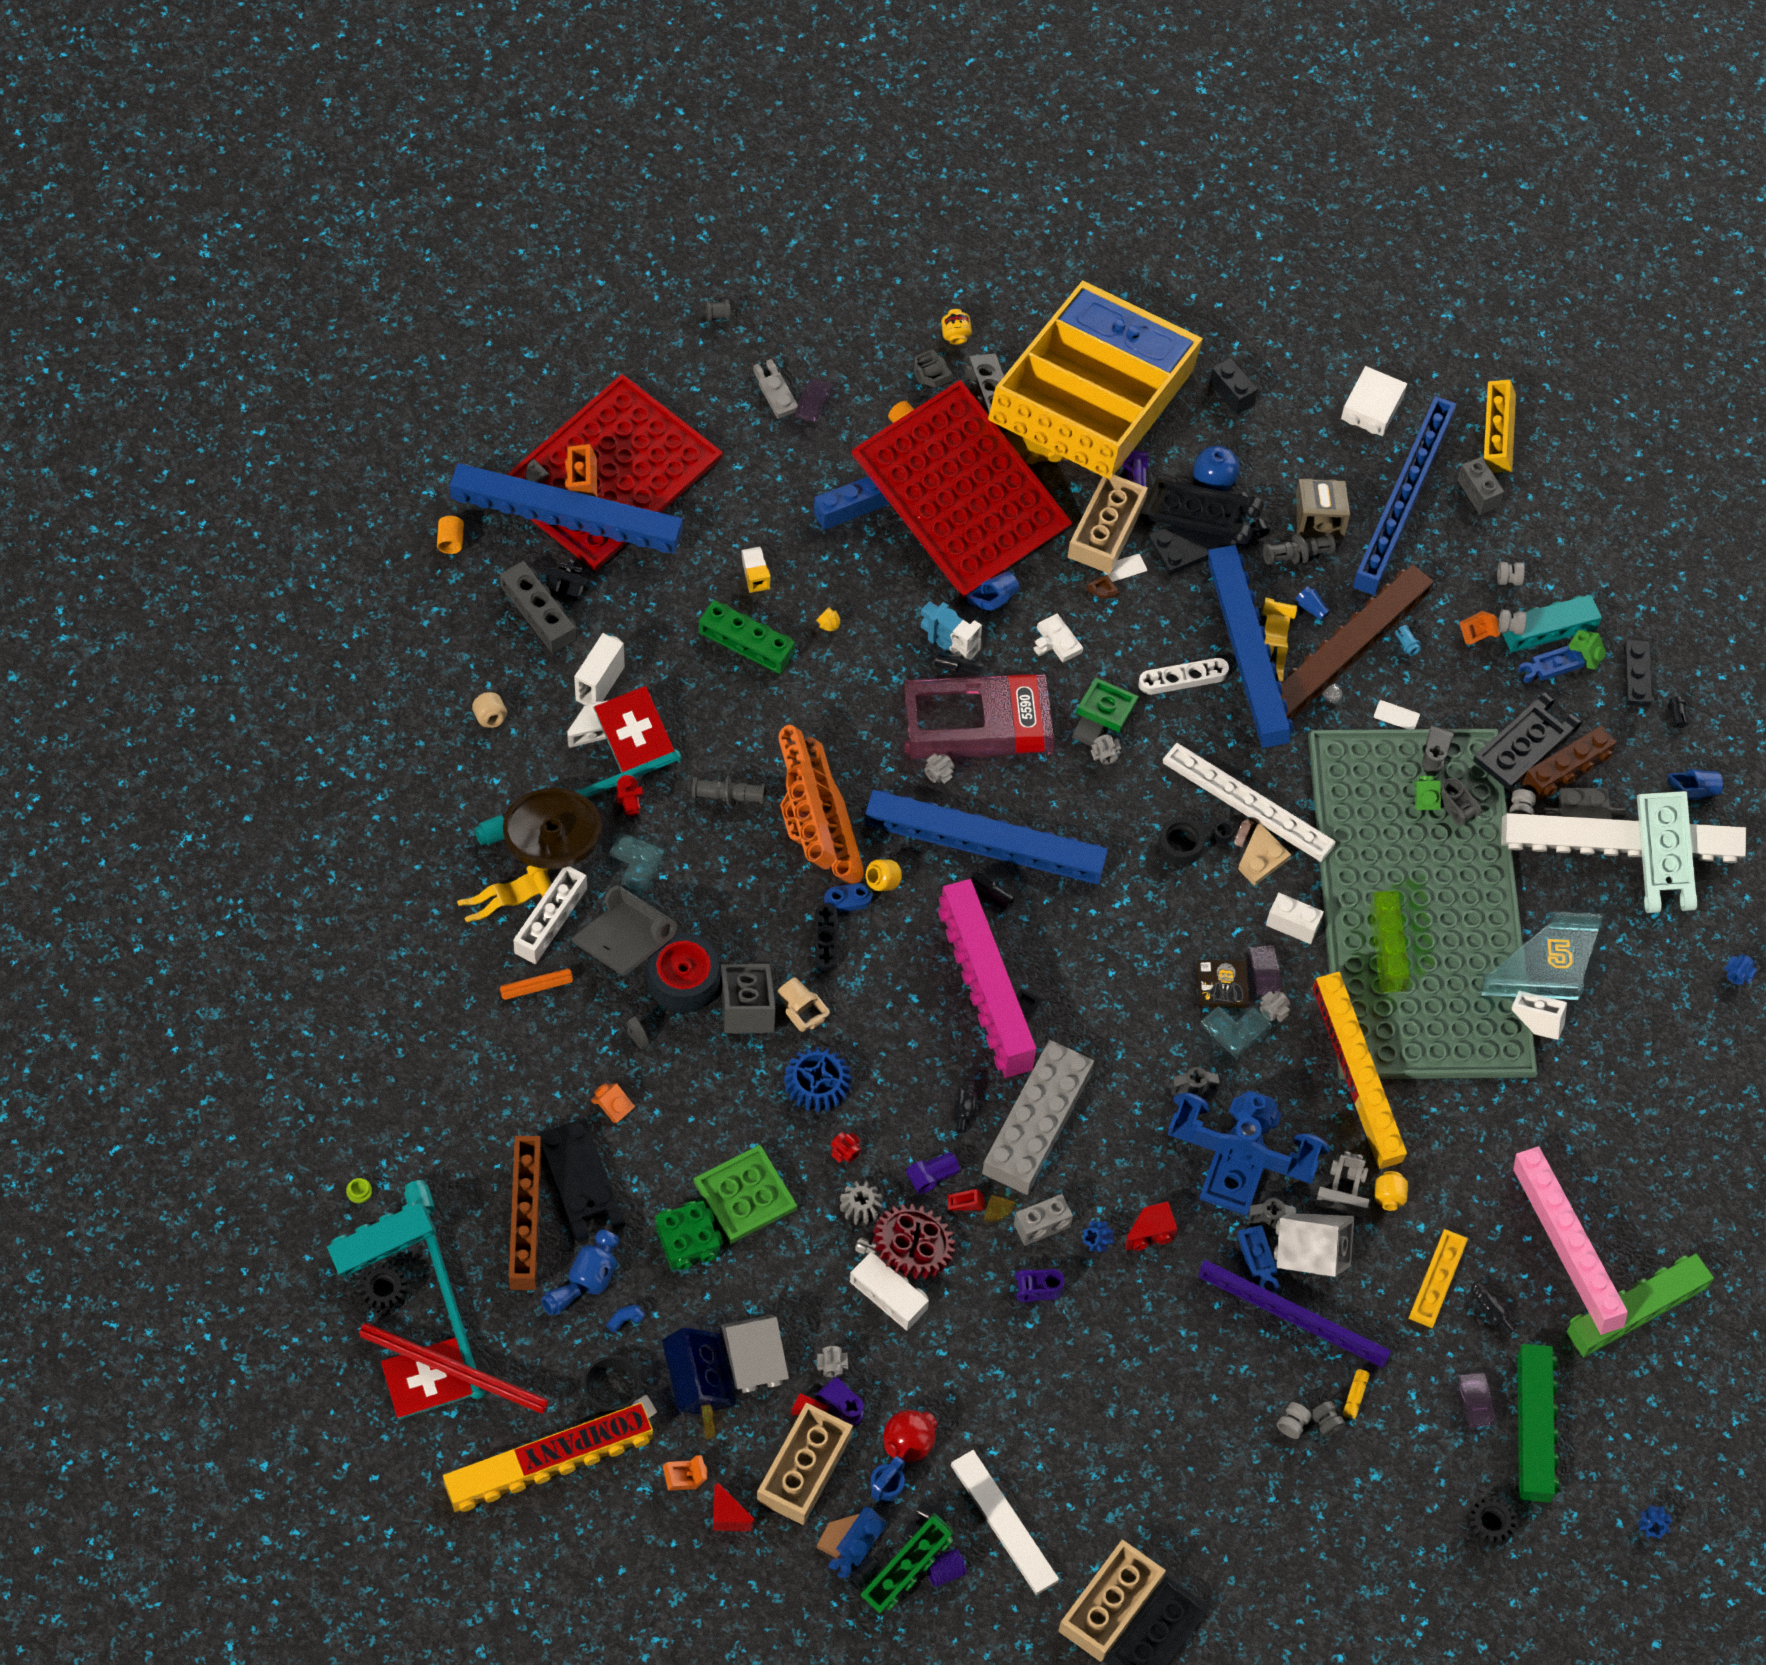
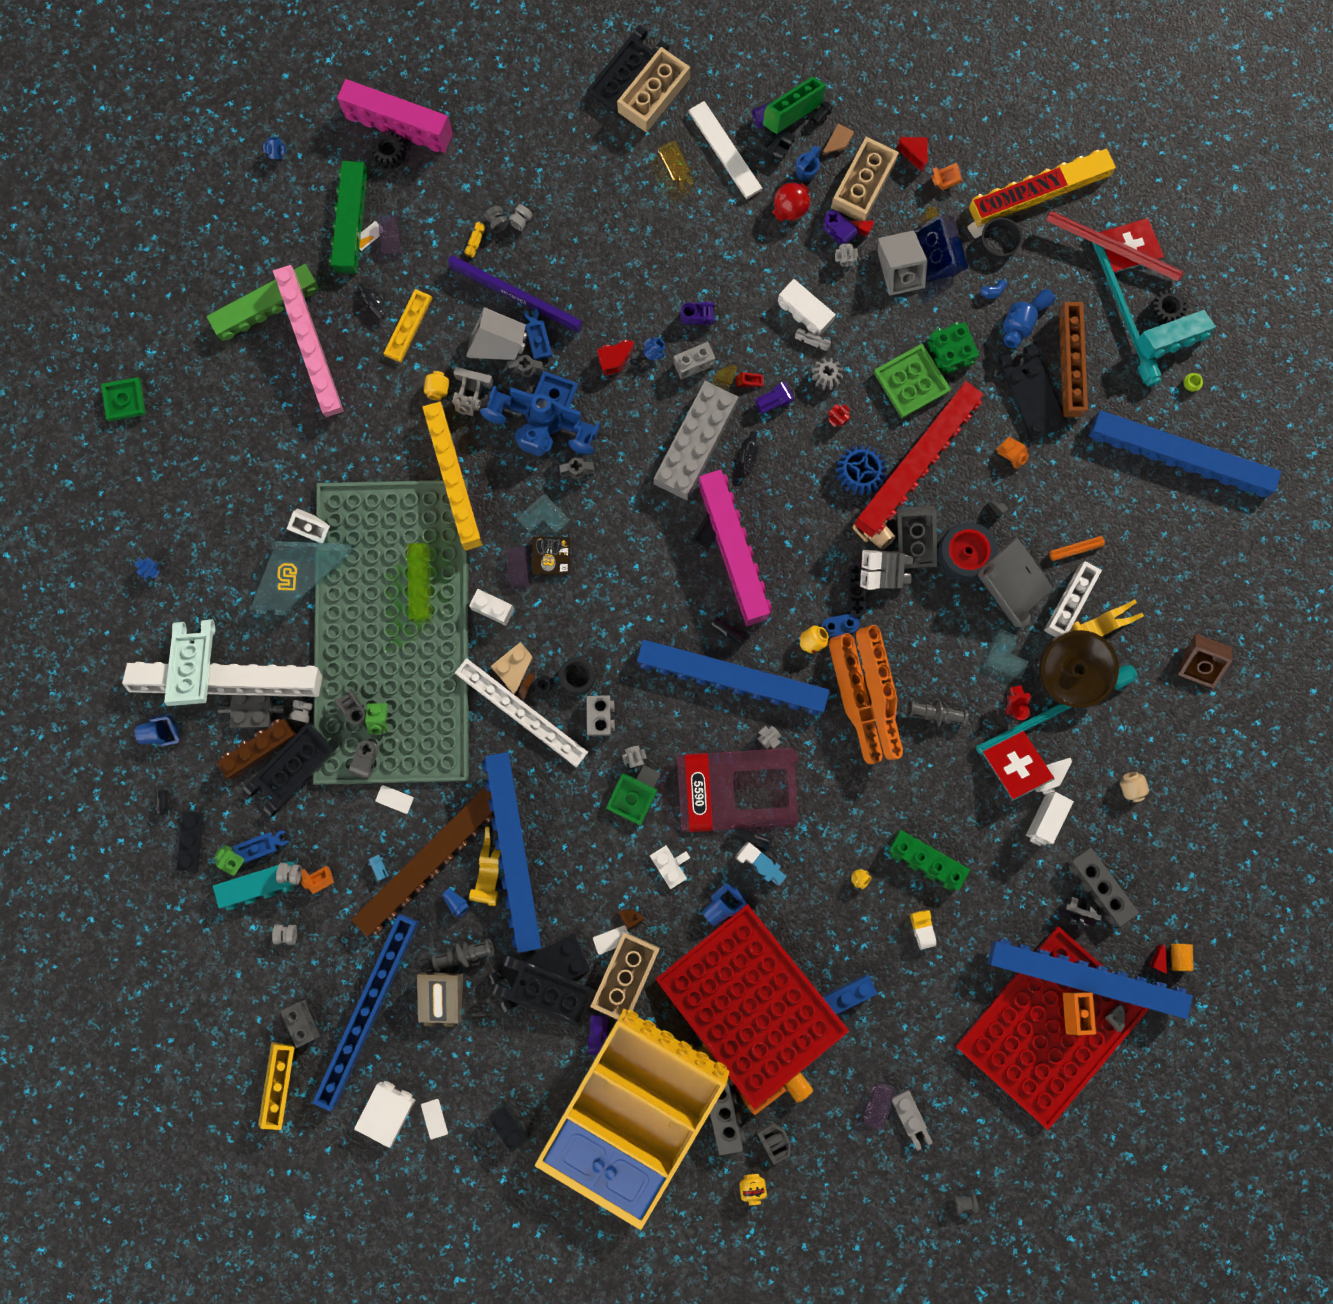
camera: 175 degrees left, 20 degrees up
(384, 848) = (1205, 661): none -> reddish brown slope
(384, 1094) = (1184, 454): none -> blue brick
(477, 533) = (1159, 959): none -> red piece
(741, 1081) = (919, 458): none -> red brick
(791, 950) = (891, 571): none -> hips
(857, 1541) = (827, 131): blue plate -> none
(895, 1237) = (772, 339): dark red gear -> none
(1075, 1498) = (676, 164): none -> clear yellow plate
(1153, 795) = (594, 716): none -> light grey brick
(1182, 672) = (567, 833): white beam -> none
(1216, 468) = (528, 1040): blue cylinder -> none
(1275, 1006) = (512, 532): light grey gear -> none
(1318, 400) = (434, 1119): none -> white sticker
(1332, 693) = (445, 815): clear hinge -> none
(1486, 1558) = (395, 115): none -> dark pink brick
(1506, 1406) = (369, 235): none -> white sticker

